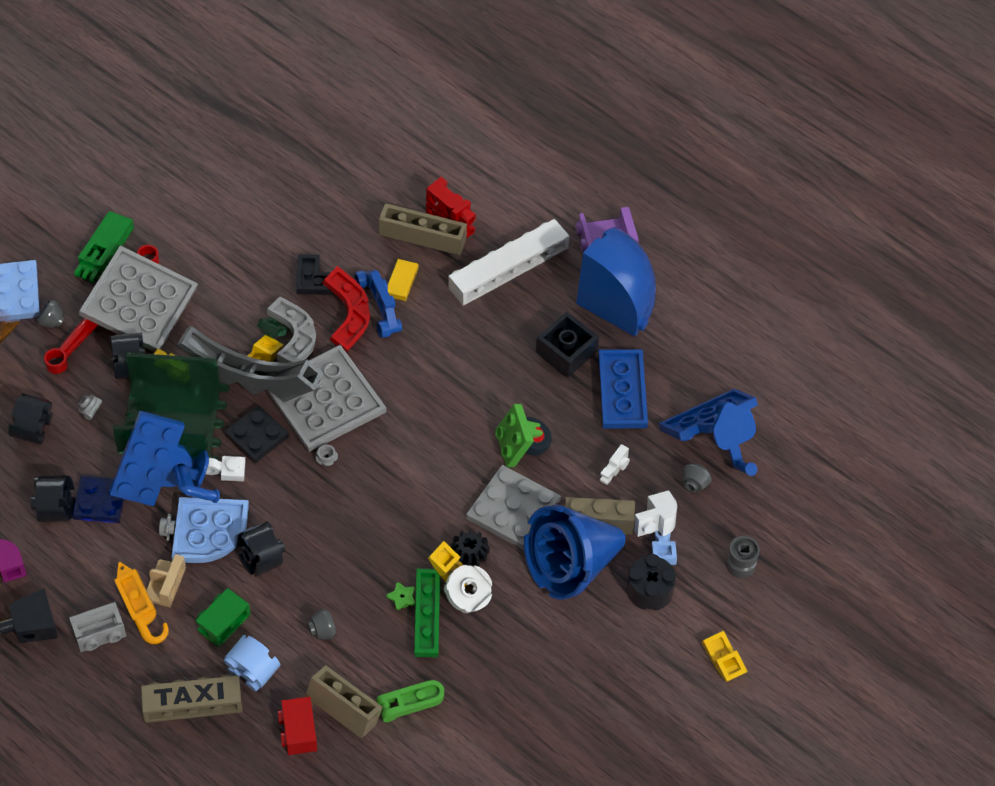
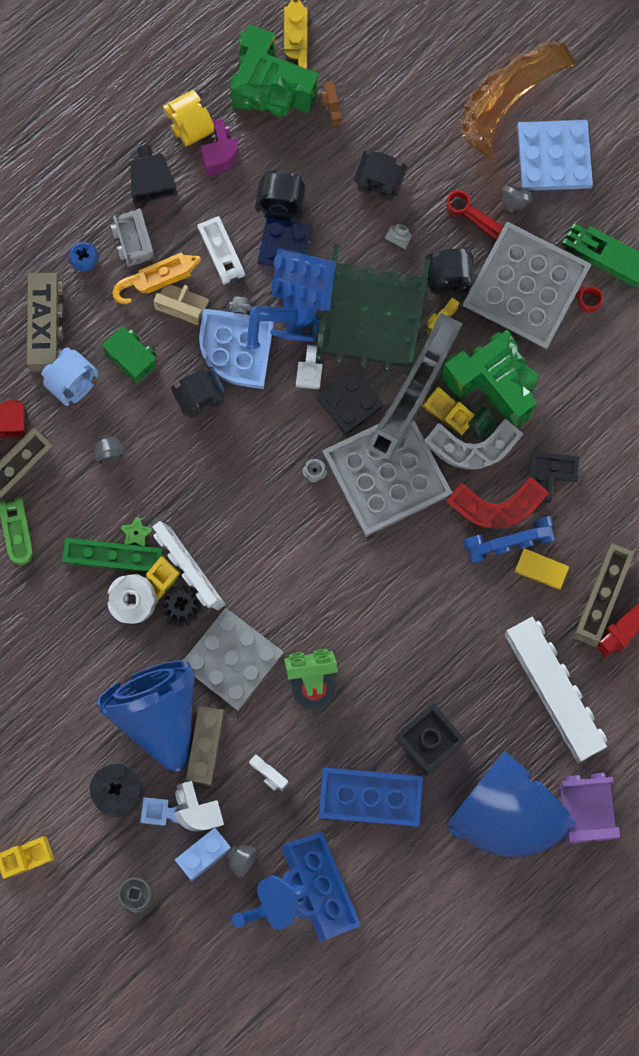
camera: 95 degrees right, 20 degrees up
(108, 551) = (220, 249): none -> white plate
(115, 664) = (81, 249): none -> blue piece
(232, 311) = (498, 374): none -> green brick
(428, 542) = (192, 573): none -> white plate
(697, 508) = (203, 854): none -> light blue brick

